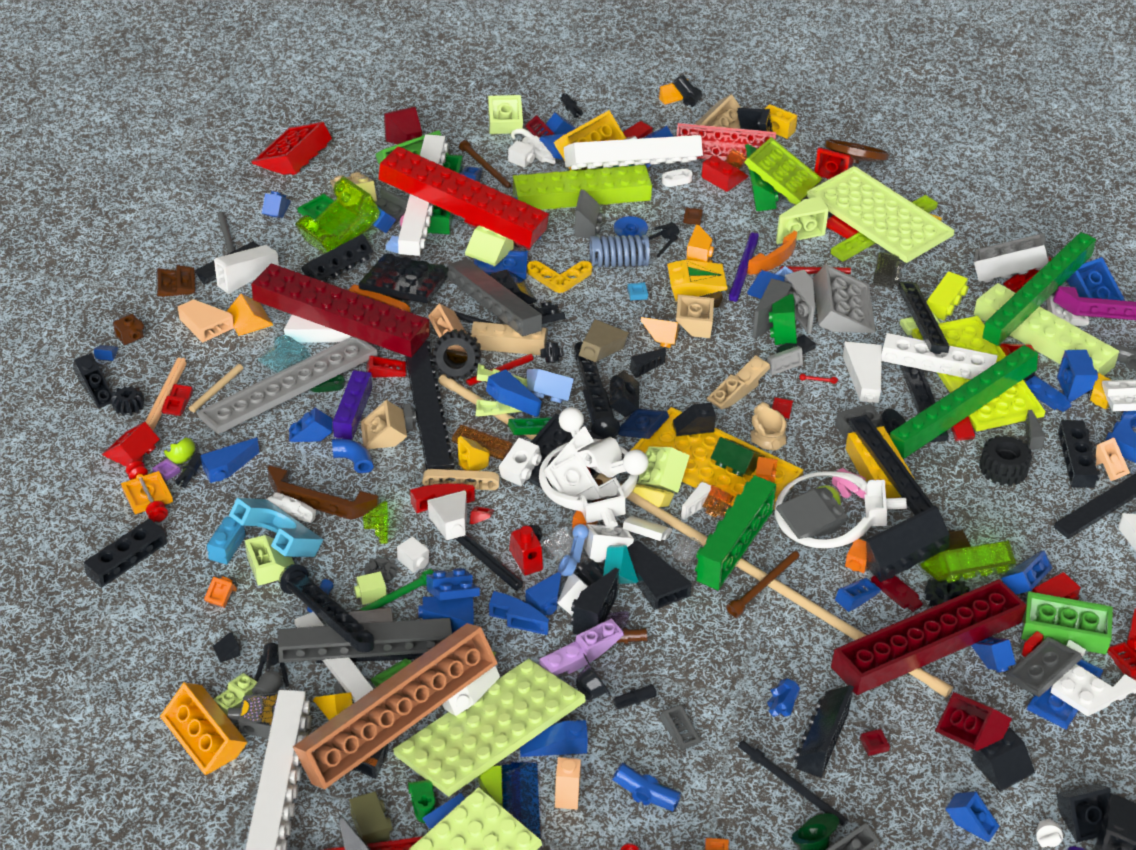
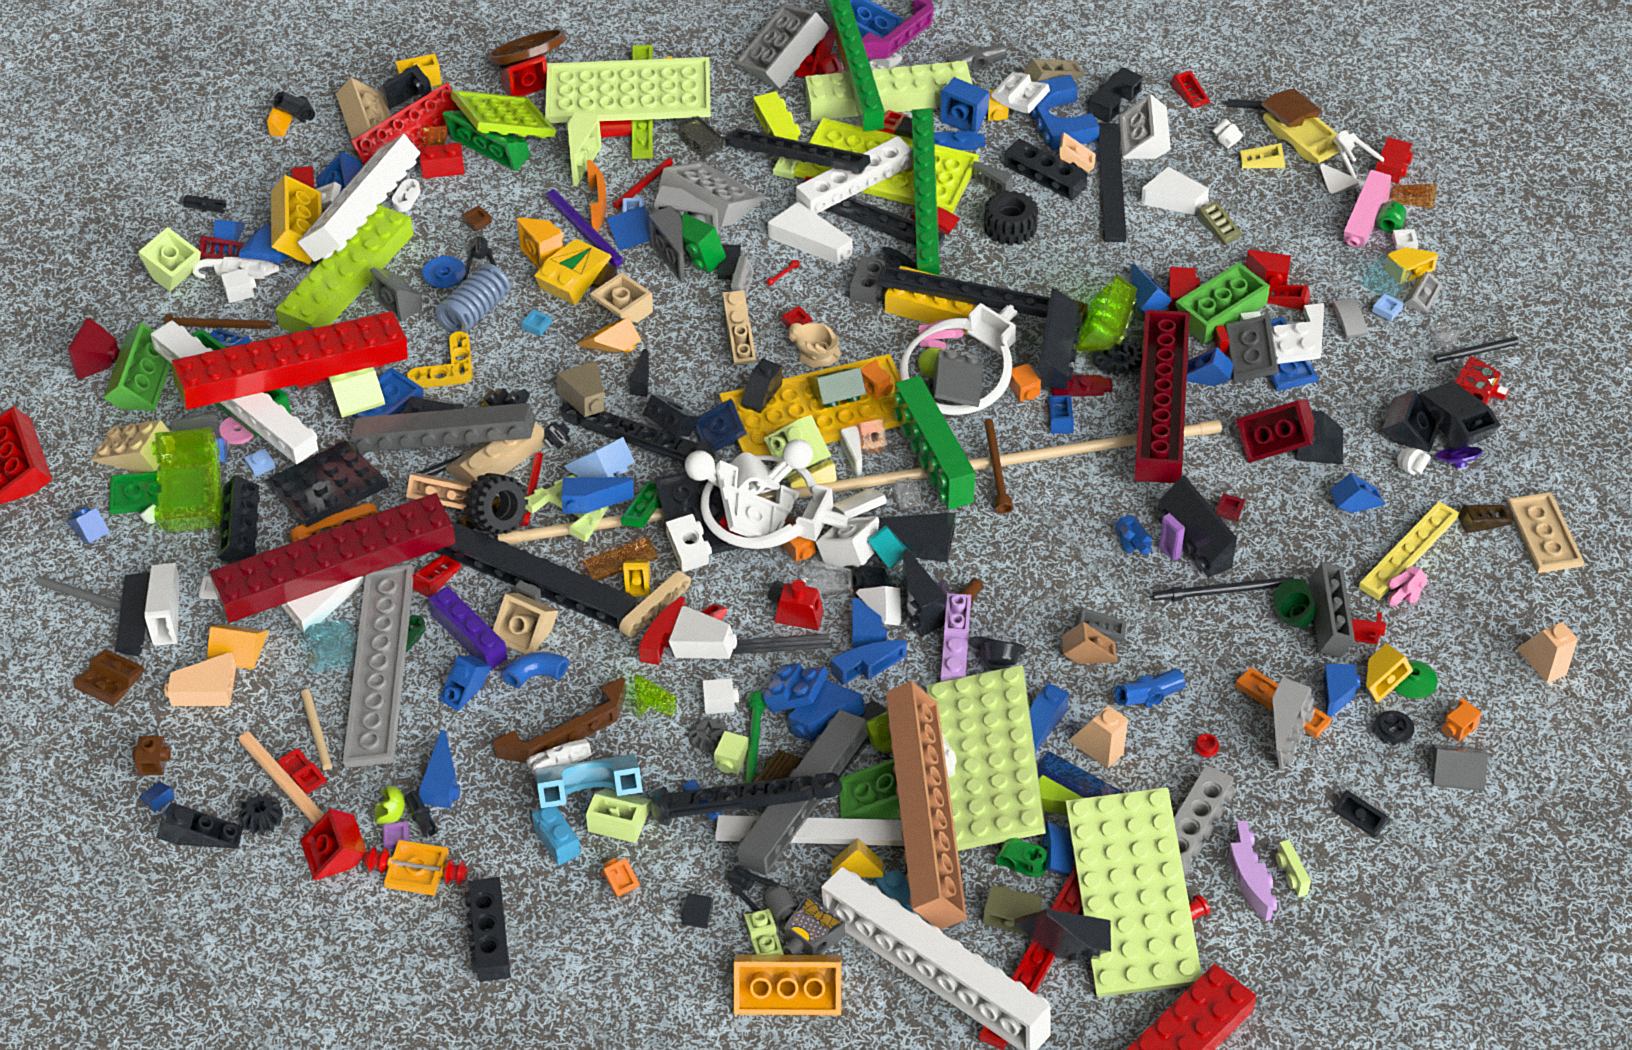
camera: 50 degrees left, 5 degrees up
(568, 563) = (827, 552): medium blue piece -> none
(635, 697) = (1039, 635): black axle -> none
(652, 730) = (1088, 645): none -> medium nougat slope
(798, 718) = (1171, 537): none -> medium lavender tile

